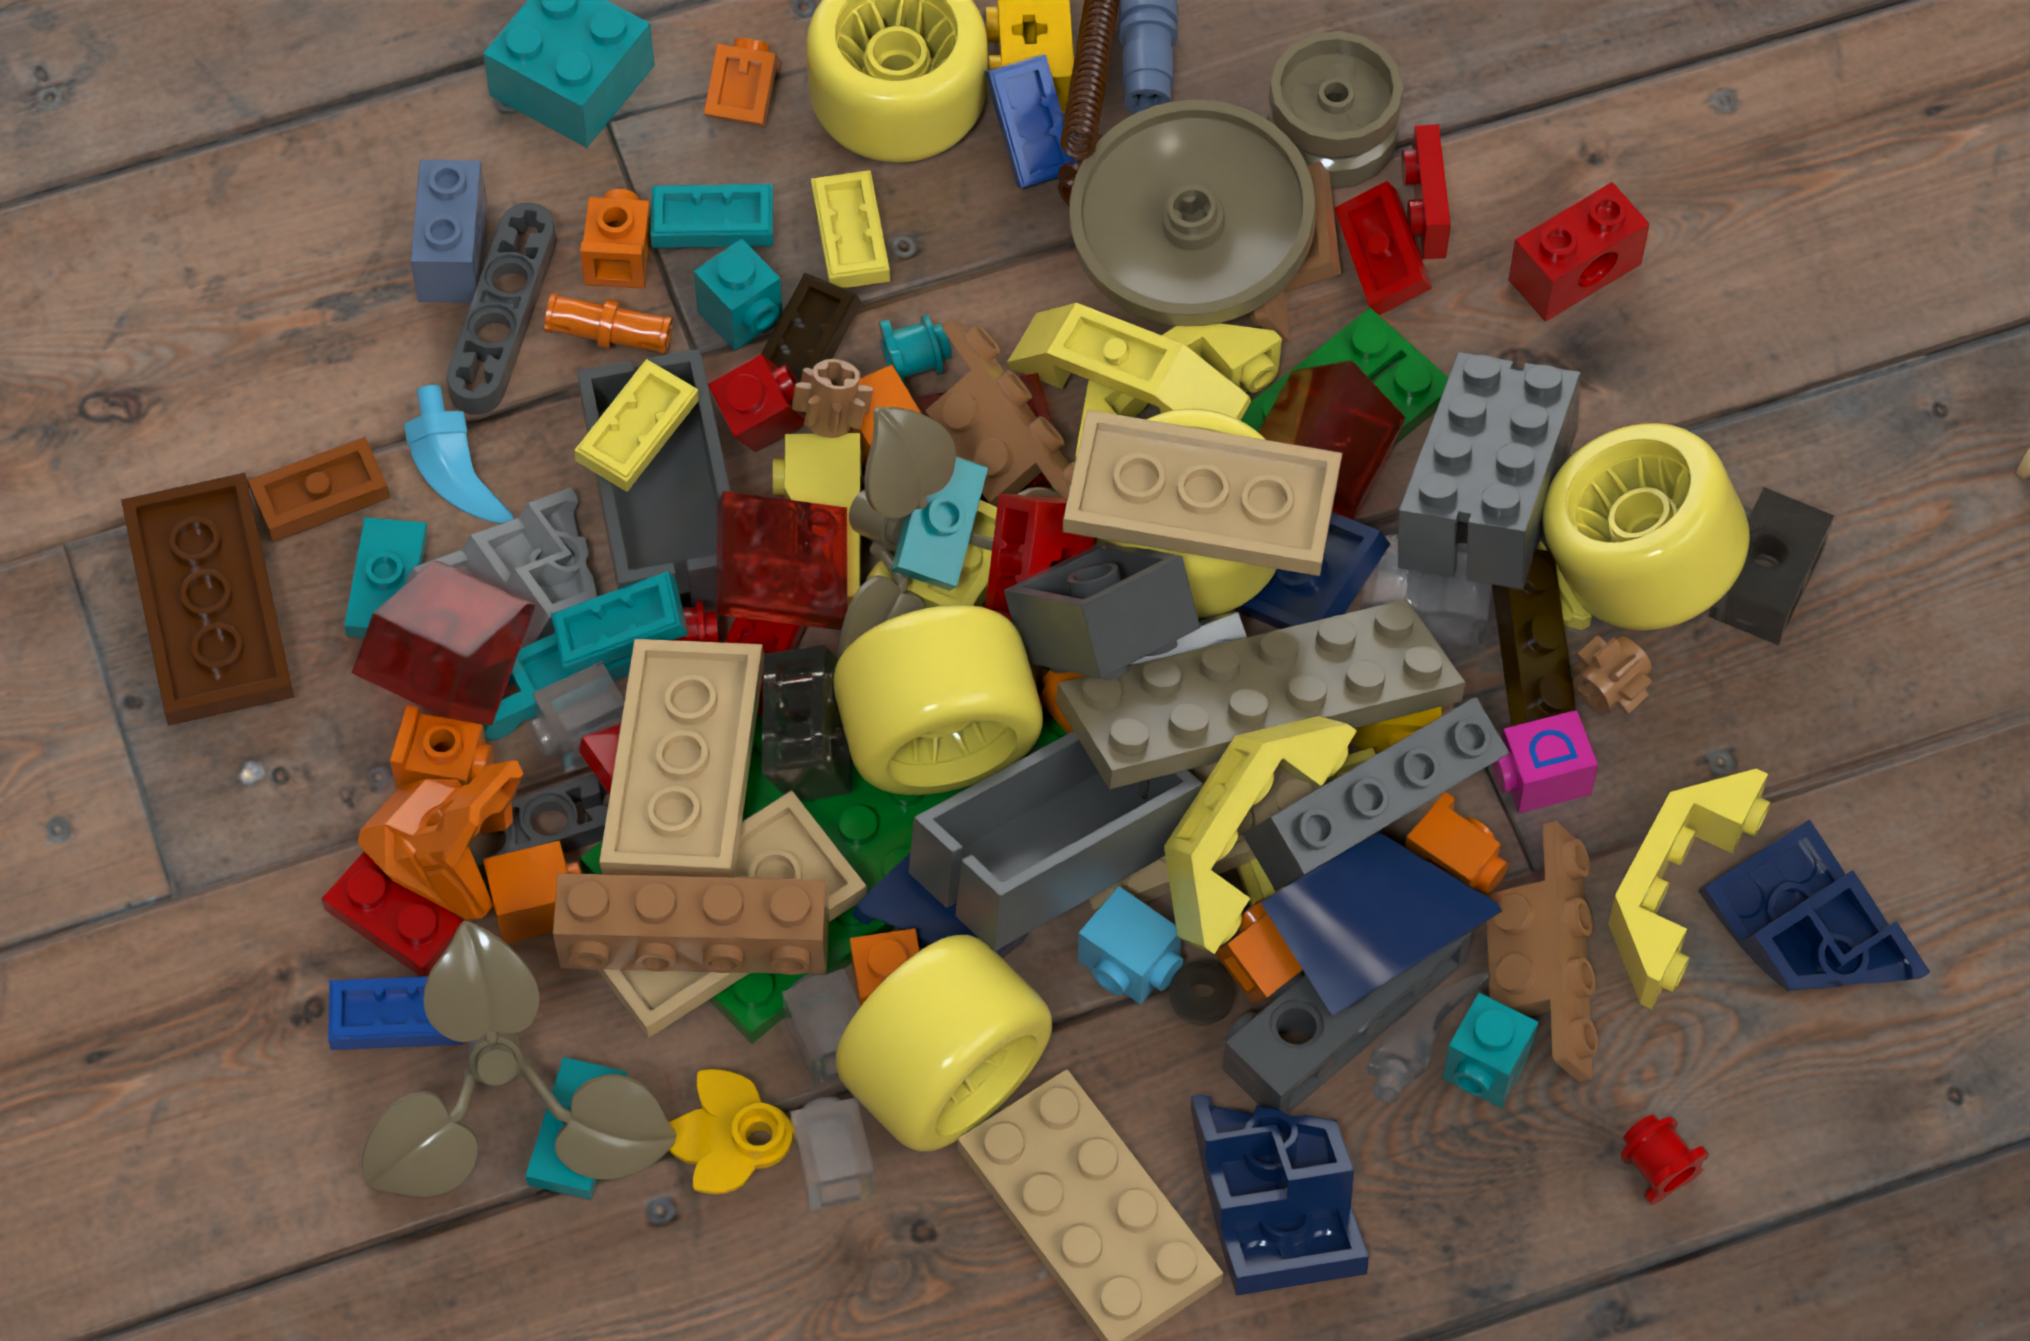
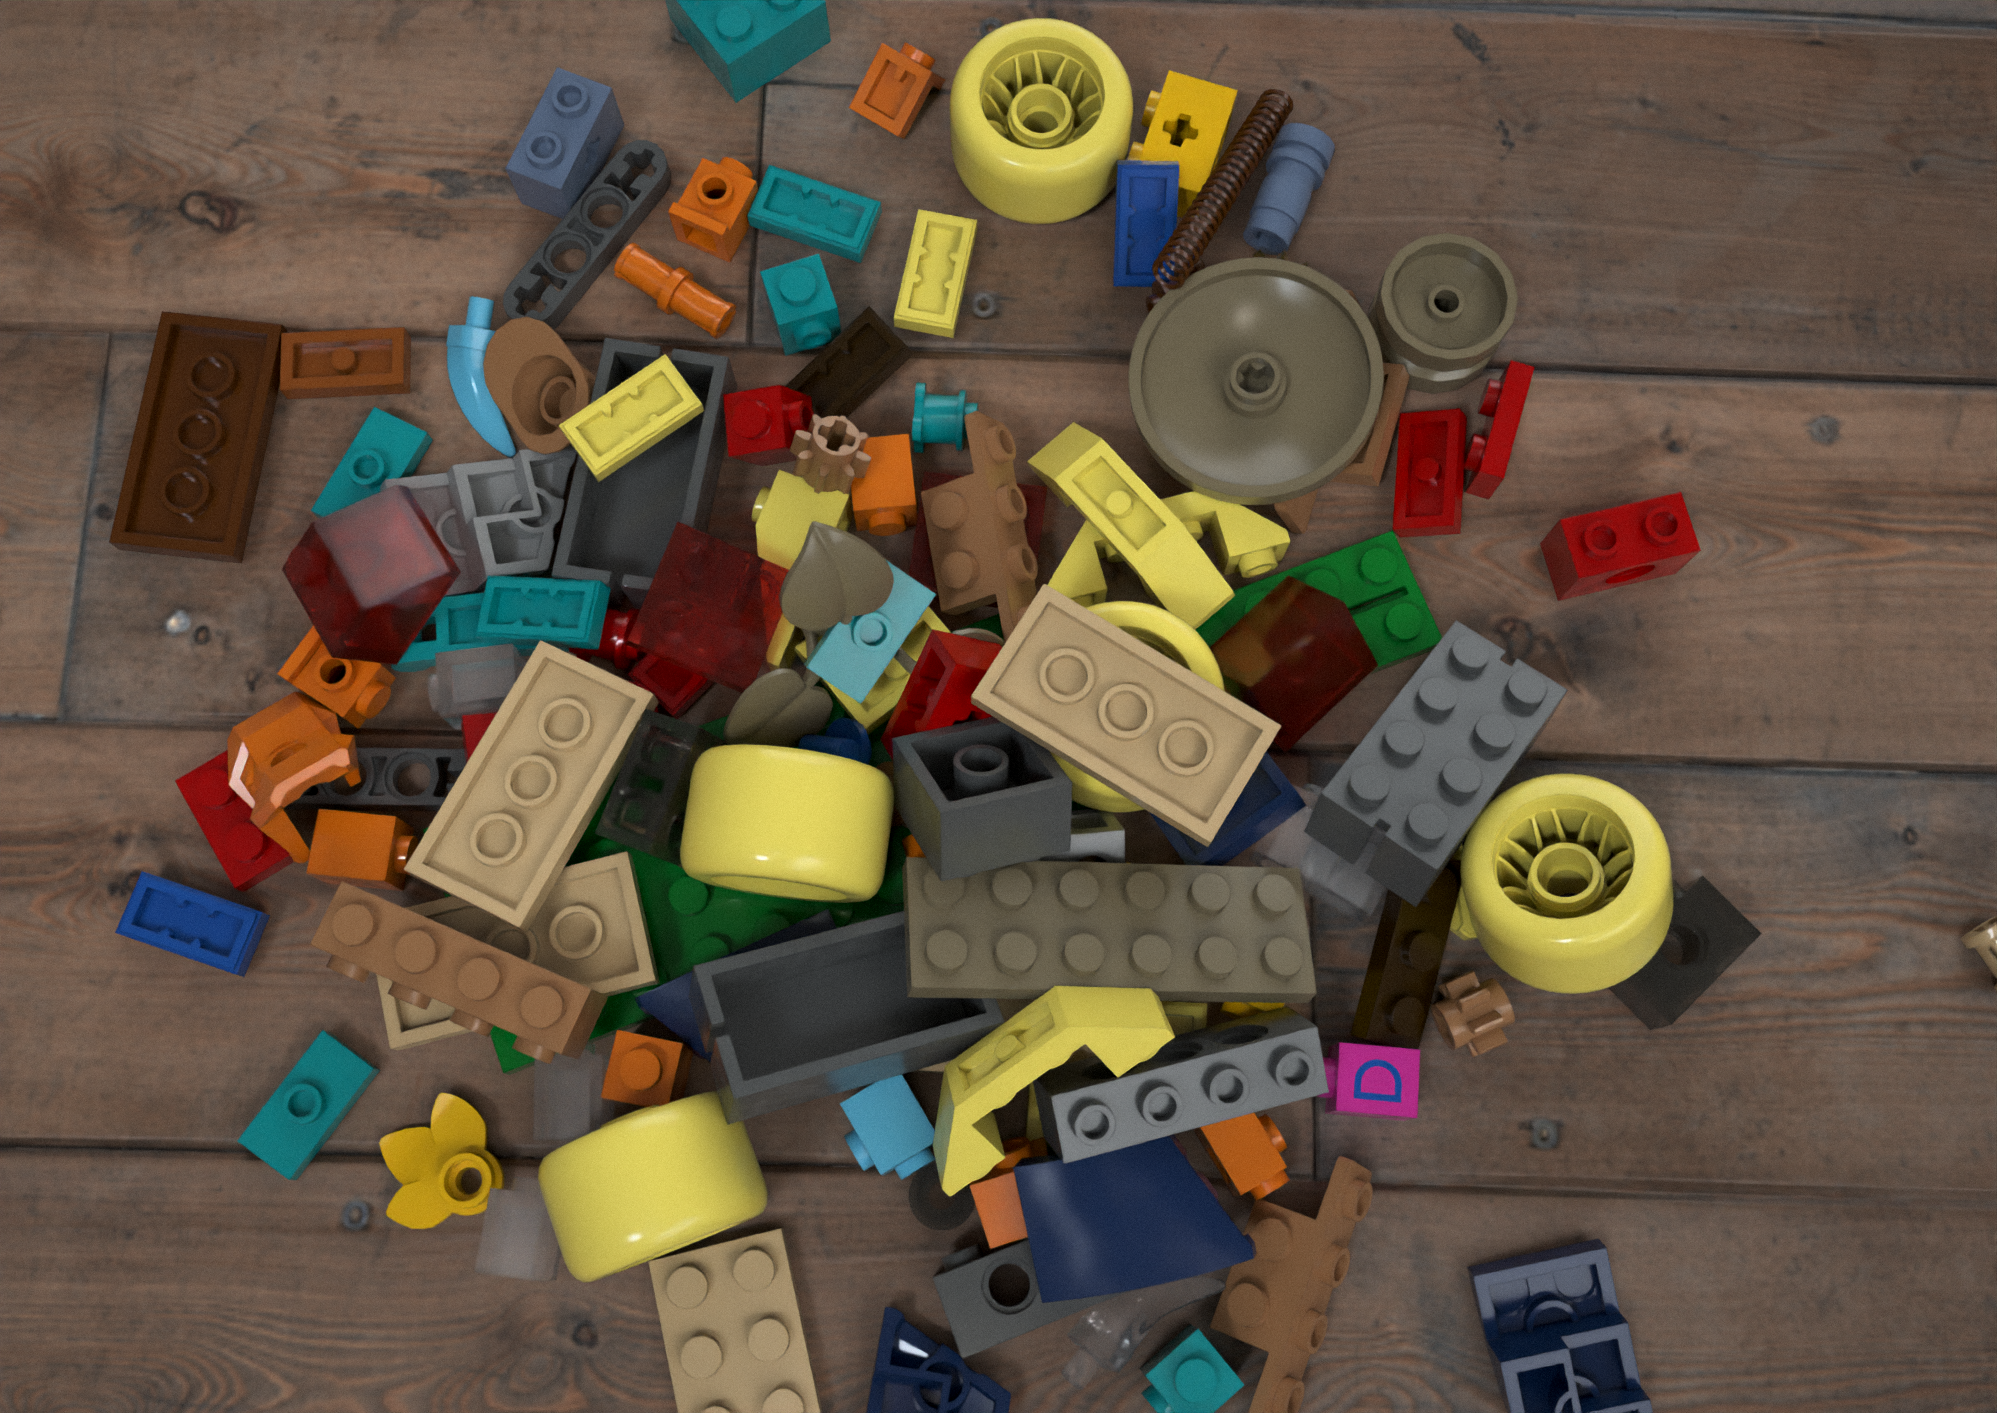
camera: 20 degrees right, 15 degrees up
(485, 997) = (204, 985): dark tan plant -> none
(521, 438) = (536, 382): none -> medium nougat piece
(1710, 811) = (1391, 1325): light yellow slope -> none

